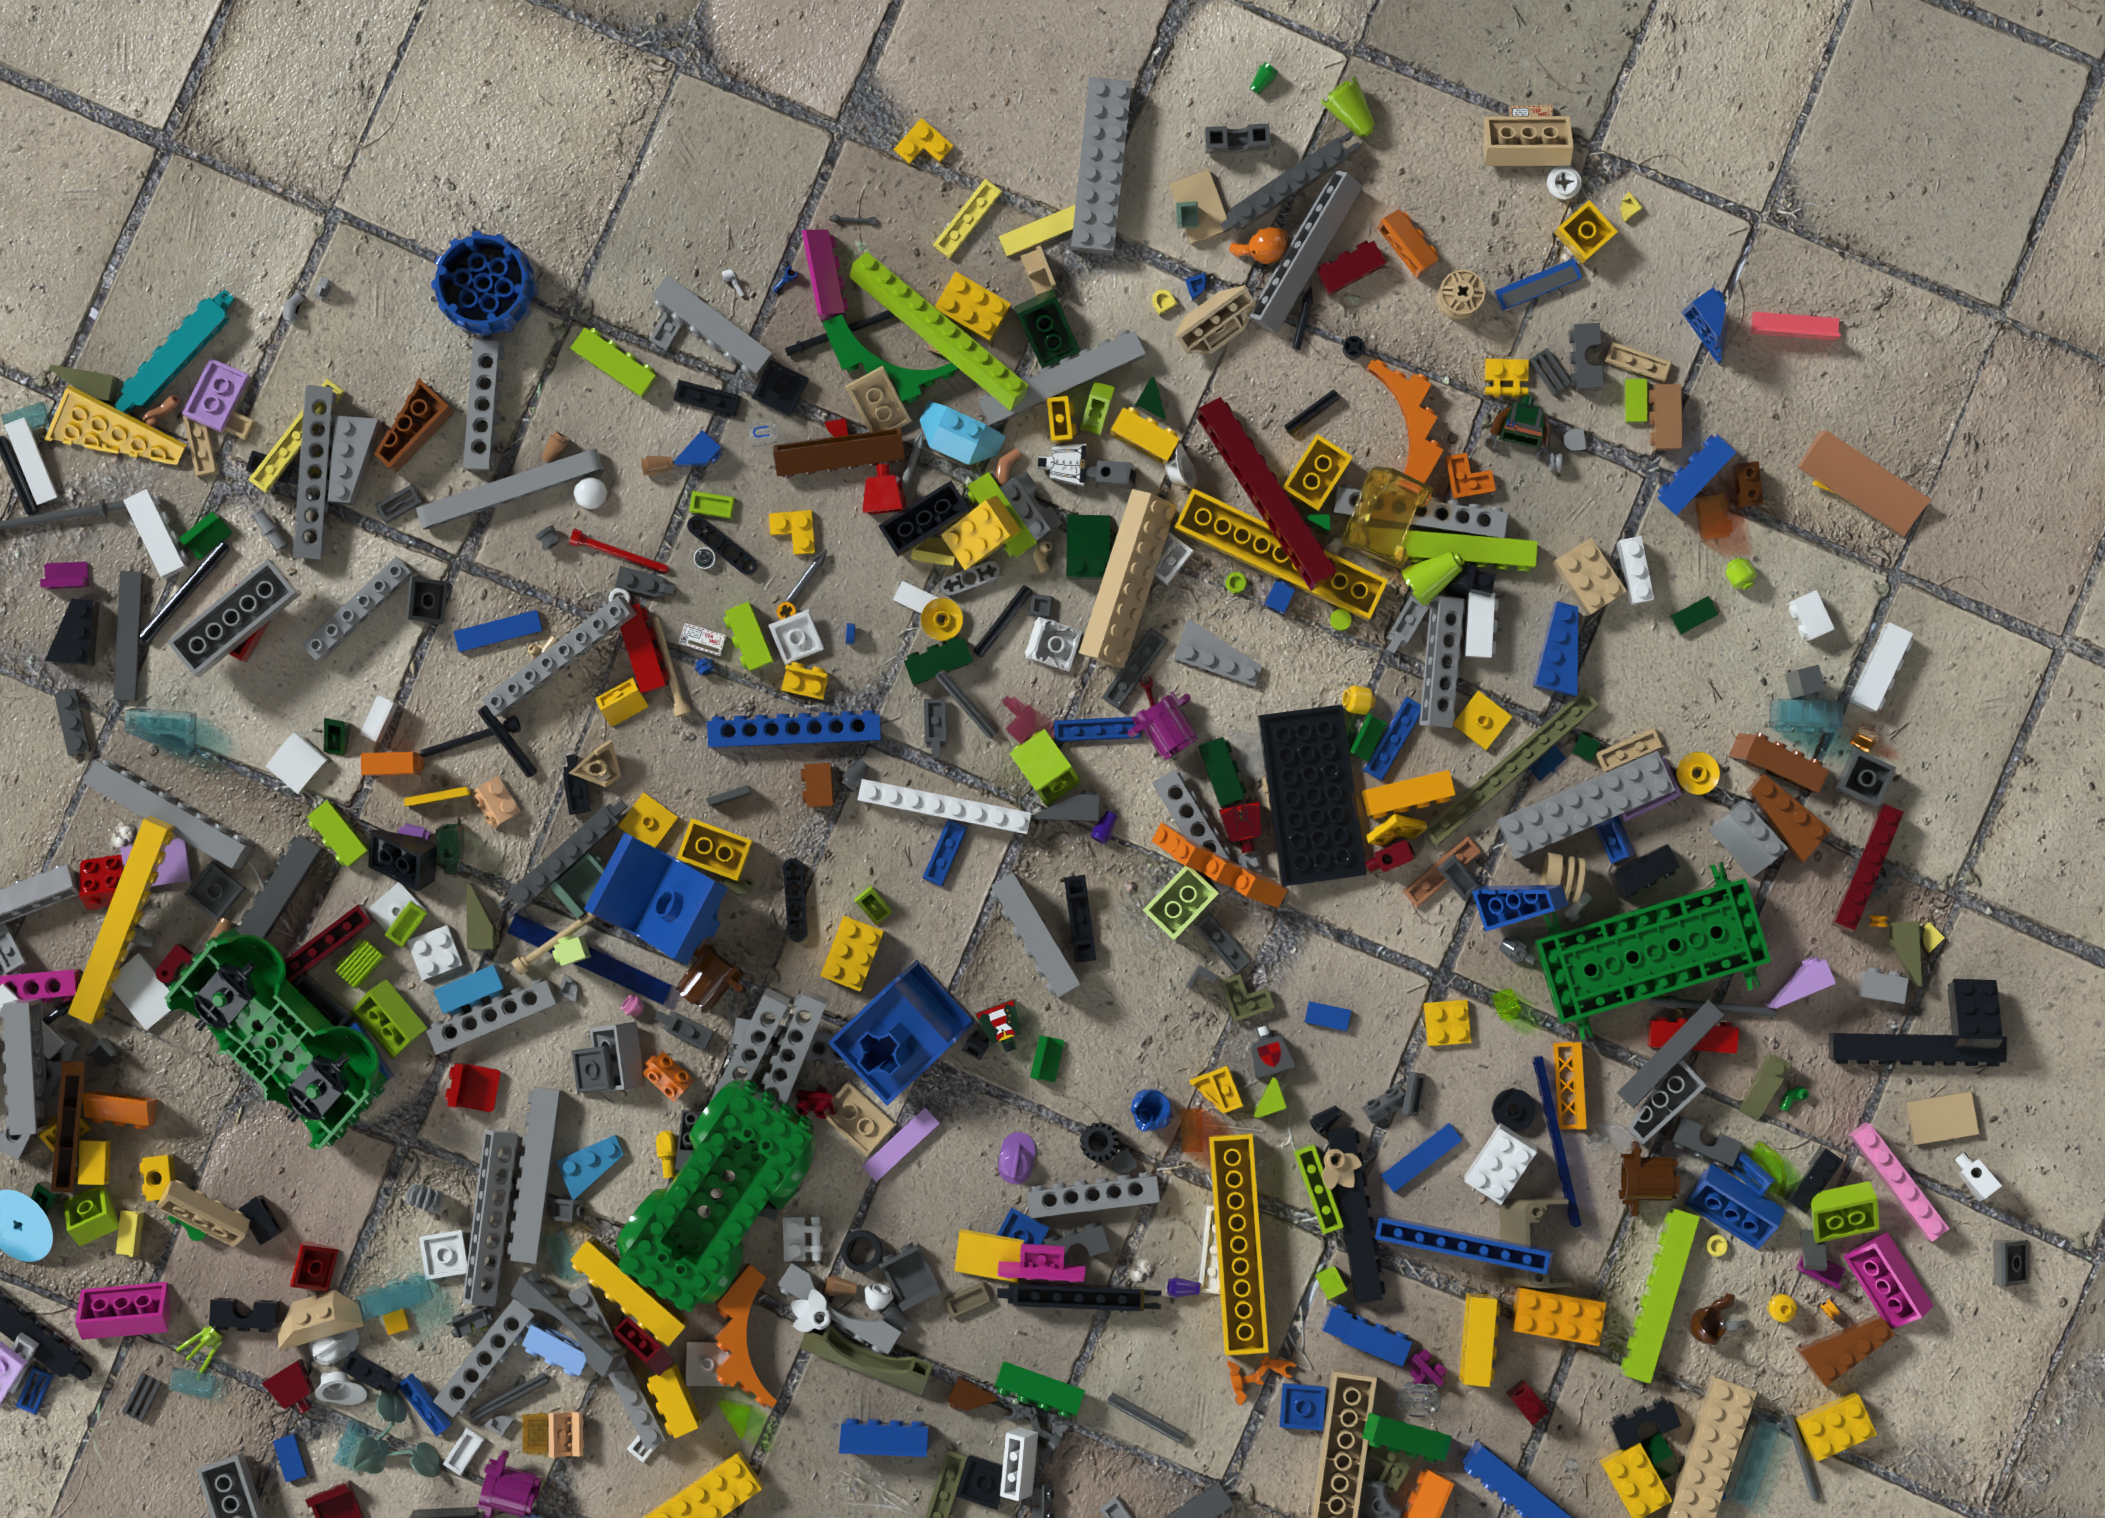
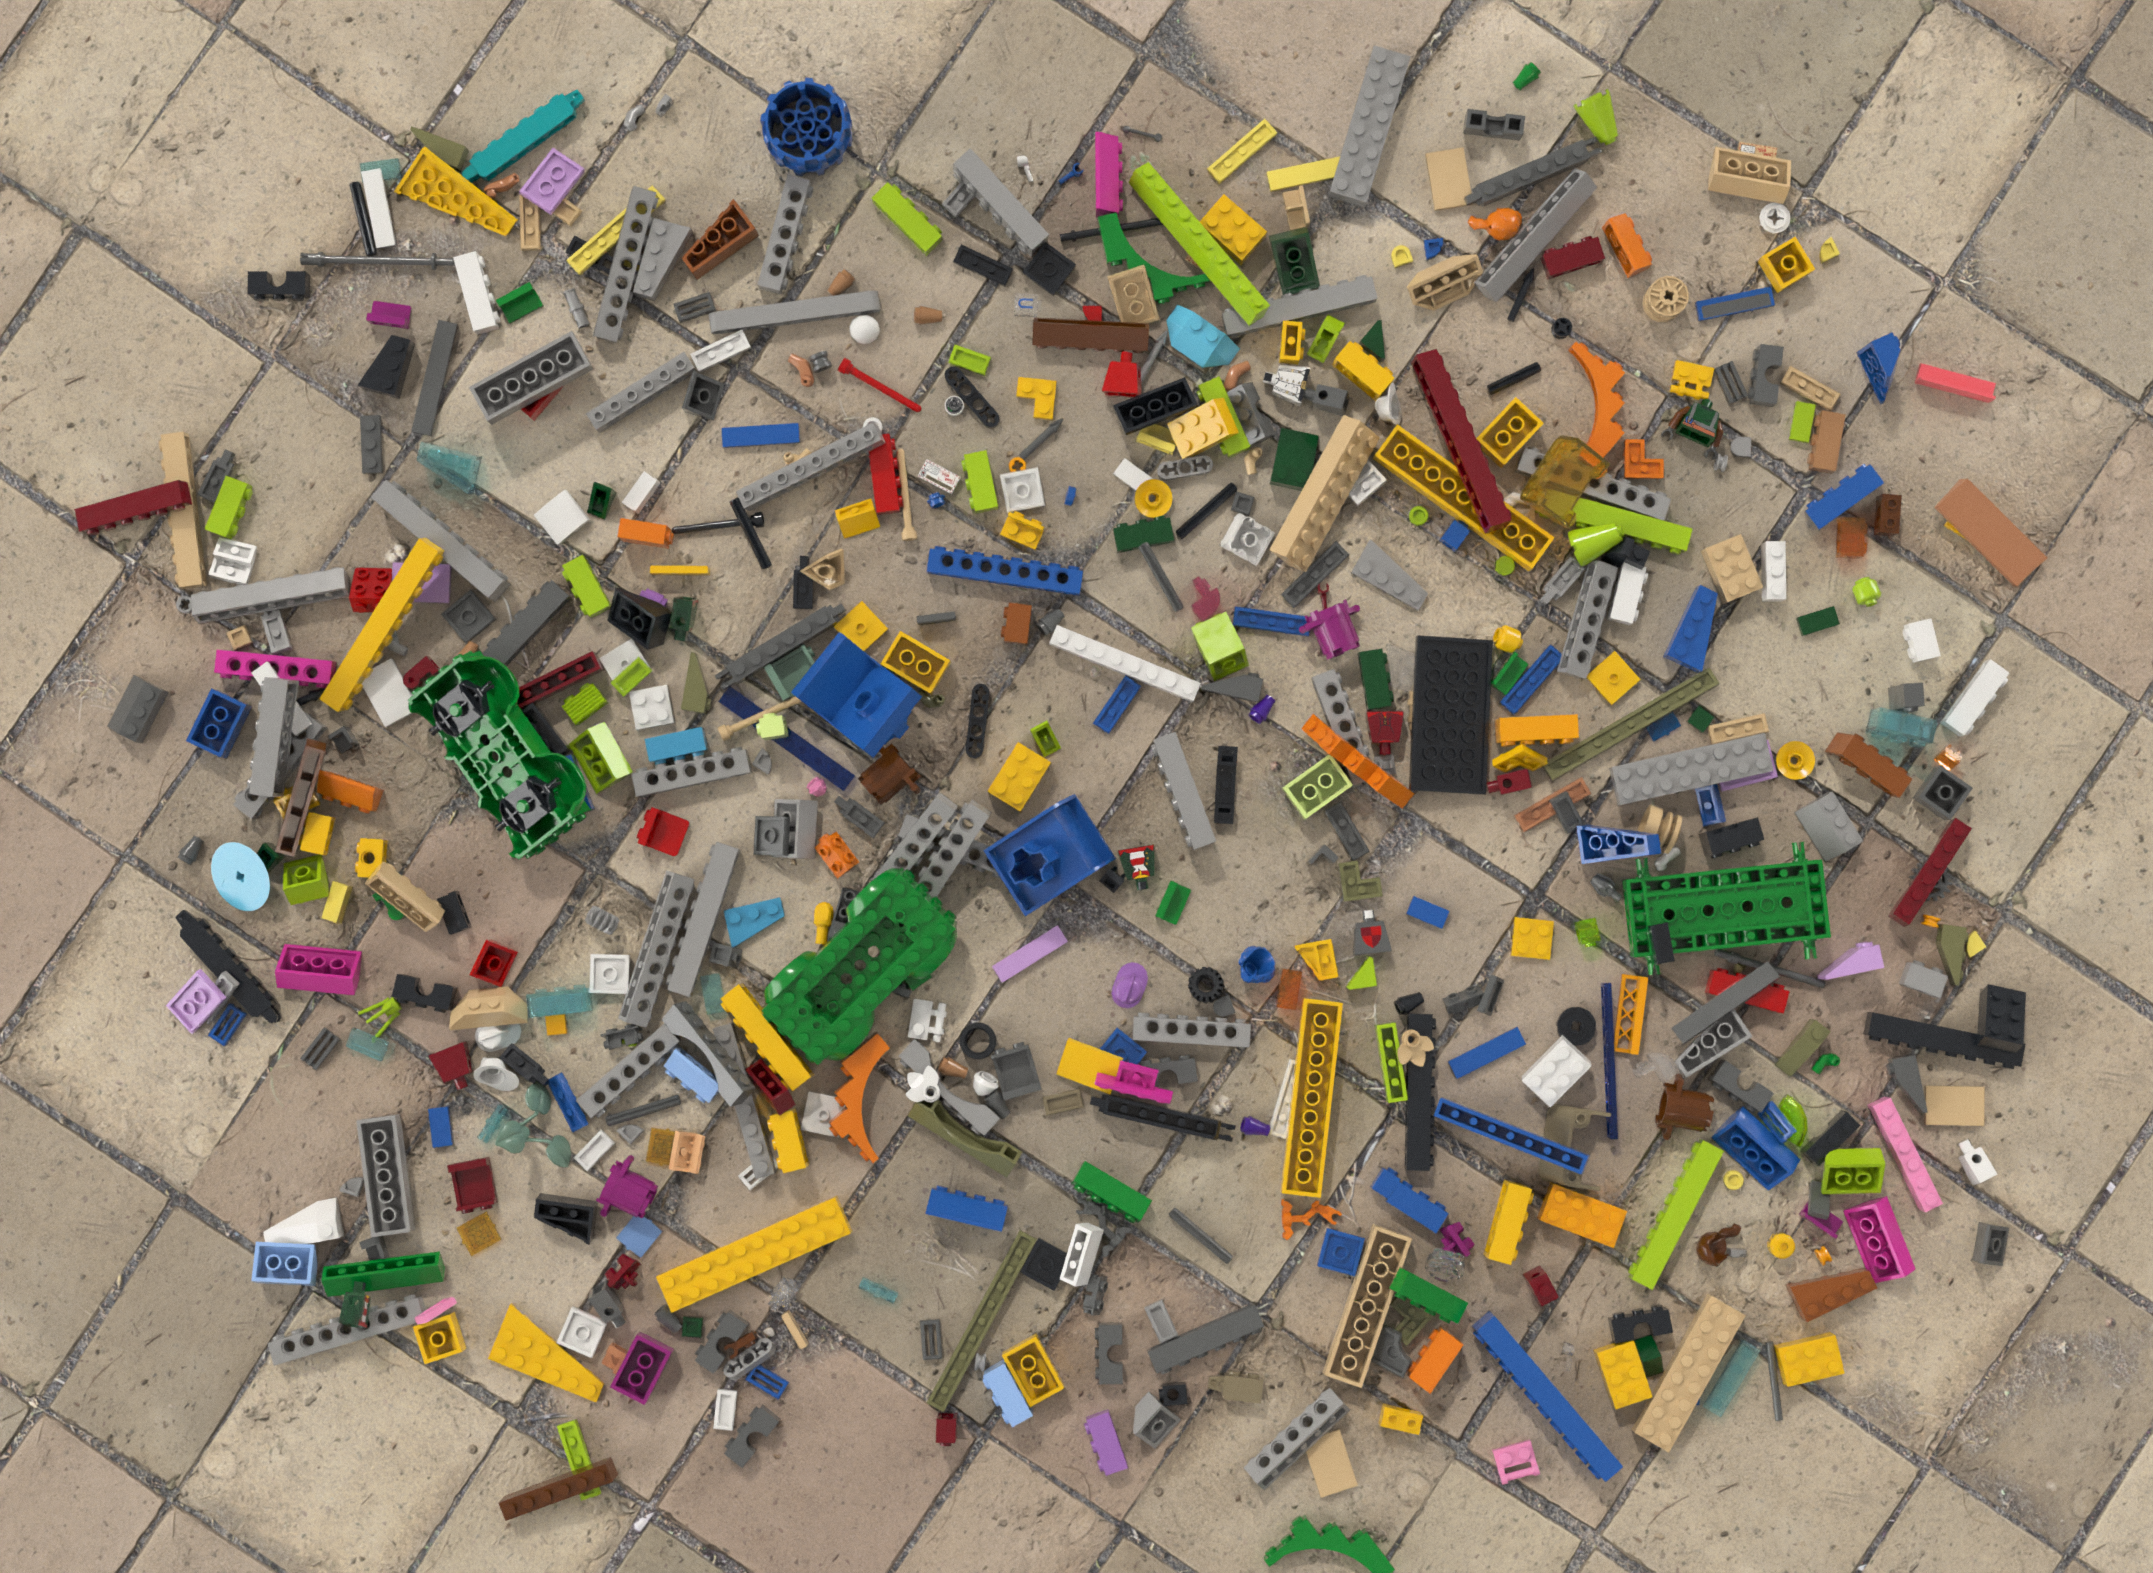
camera: 10 degrees right, 0 degrees up
(184, 592) = (491, 348): black axle -> none
(436, 546) = (720, 351): none -> white plate
(495, 802) = (729, 585): light nougat bracket -> none
(532, 549) = (804, 368): none -> nougat arm
(643, 583) = (896, 417): dark grey hinge -> none
(700, 452) = (968, 311): blue slope -> none
(736, 1414) = (840, 1163): clear neon green slope -> none
(817, 1101) = (962, 901): dark red hips -> none
(859, 1119) = (996, 924): tan tile -> none
(923, 137) = (1215, 72): yellow plate -> none
(935, 725) = (1130, 591): dark grey hinge -> none
(969, 1395) = (1048, 1186): reddish brown slope -> none
(1187, 214) = (1436, 183): sand green panel -> none
(1319, 522) = (1503, 476): green slope -> none
(1331, 1282) = (1386, 1147): lime panel -> none
(1587, 1003) = (1661, 943): none -> black panel
(1791, 820) = (1868, 814): dark orange wedge -> none
(1884, 1095) = (1906, 1075): none -> dark grey slope

